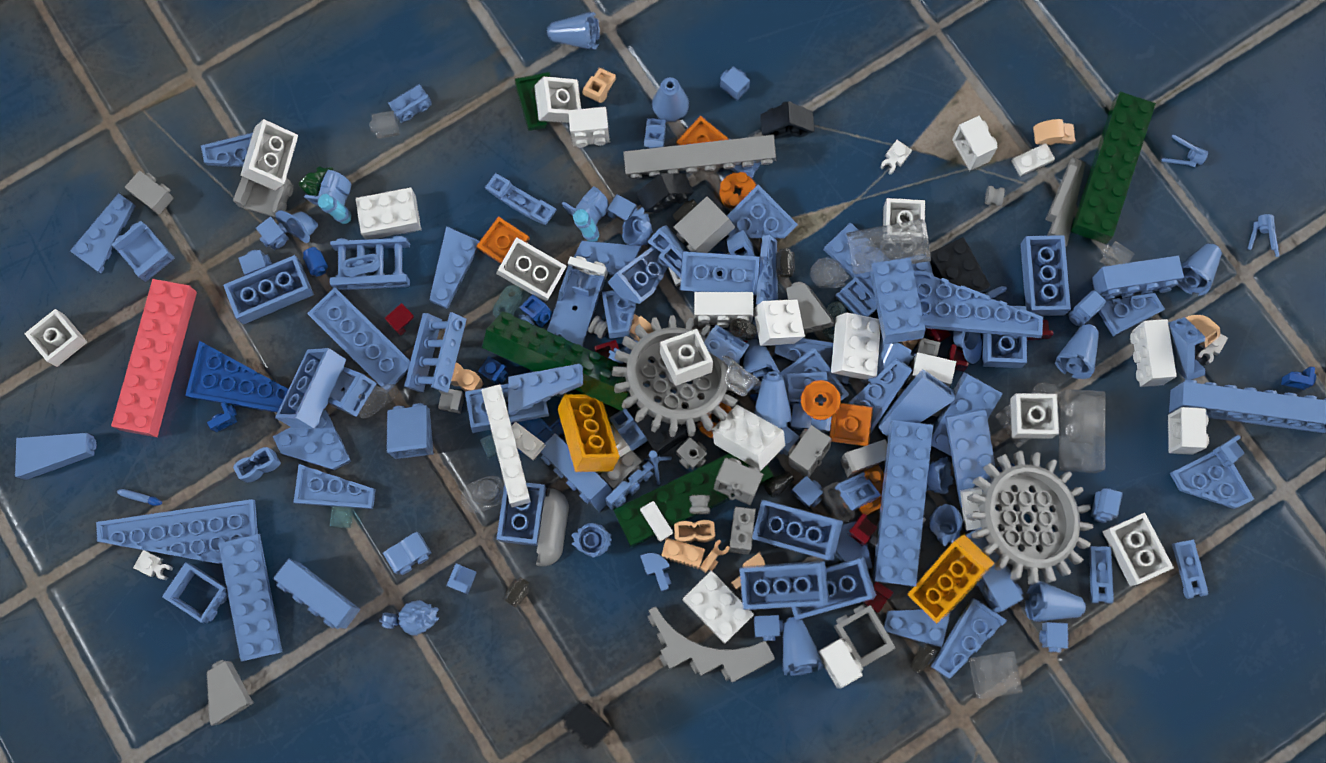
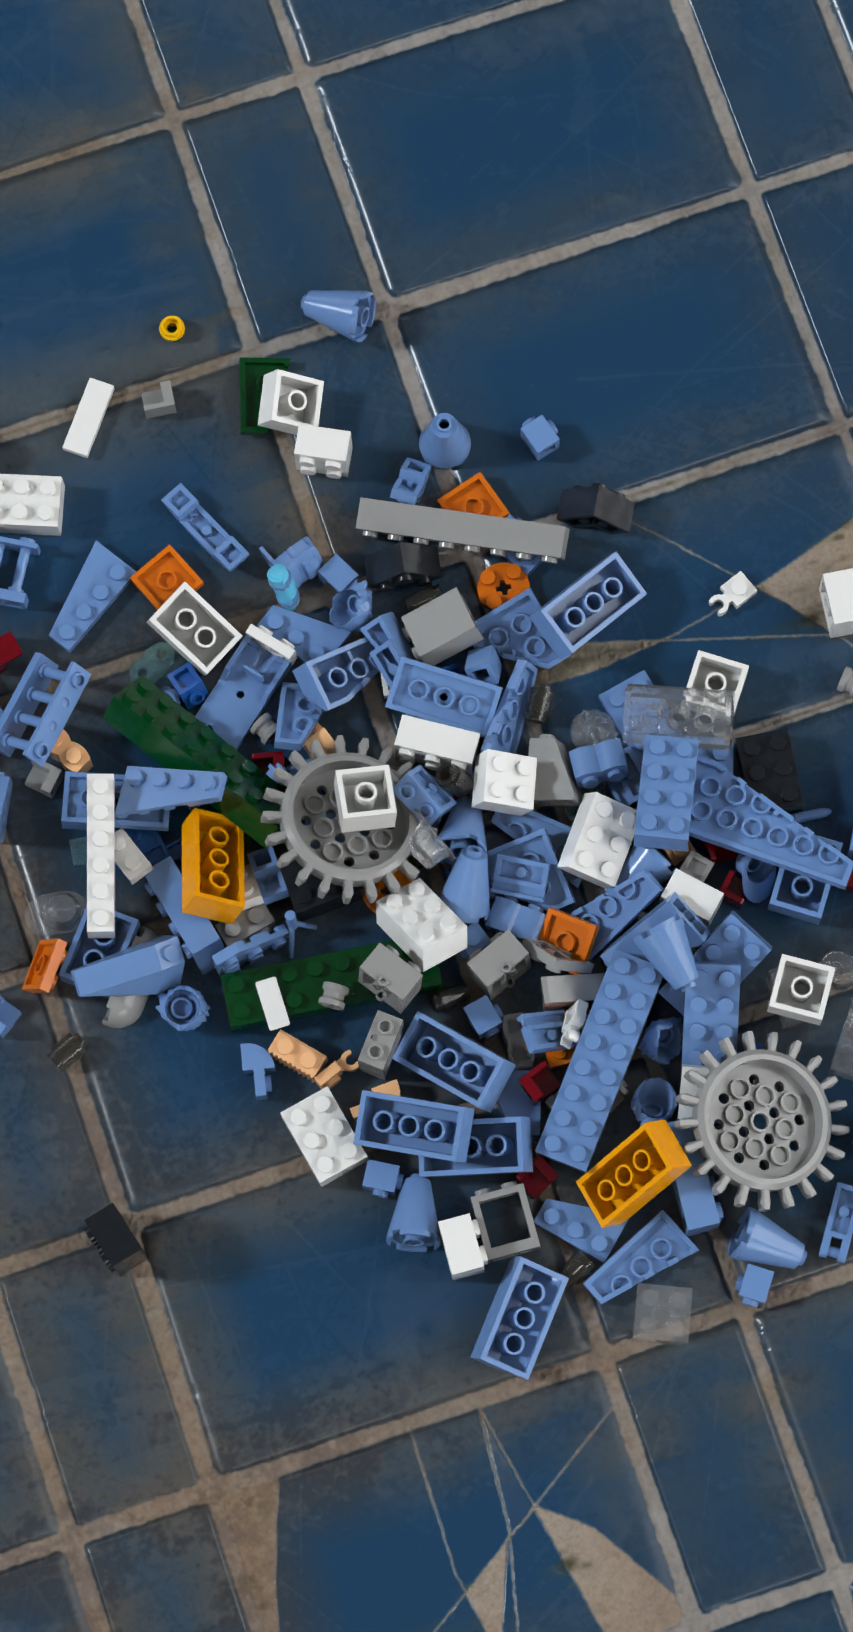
camera: 15 degrees right, 0 degrees up
(384, 124) = (47, 378): clear brick -> none
(410, 103) = (89, 356): medium blue bracket -> none
(420, 145) = (88, 417): none -> white tile
(460, 67) = (172, 321): none -> yellow plate
(467, 122) = (159, 401): none -> light grey panel
(484, 535) = (43, 968): none -> orange plate
(493, 370) = (110, 752): blue bracket -> none
(553, 521) = (139, 970): none -> medium blue wedge
(599, 85) = (353, 395): light nougat brick -> none
(679, 649) = (328, 1213): light grey arch -> none
(691, 447) = (343, 920): light grey brick -> none
(700, 531) = (327, 1031): light nougat brick -> none
(801, 186) = (588, 605): none -> medium blue brick
(829, 406) = (519, 908): orange plate -> none
(840, 293) = (599, 763): none -> medium blue brick
(849, 437) = (554, 957): none -> light grey wing
(875, 478) = (573, 1021): none -> white plate
(894, 704) = (519, 1317): none -> medium blue slope
(935, 412) = (670, 952): none -> medium blue cone

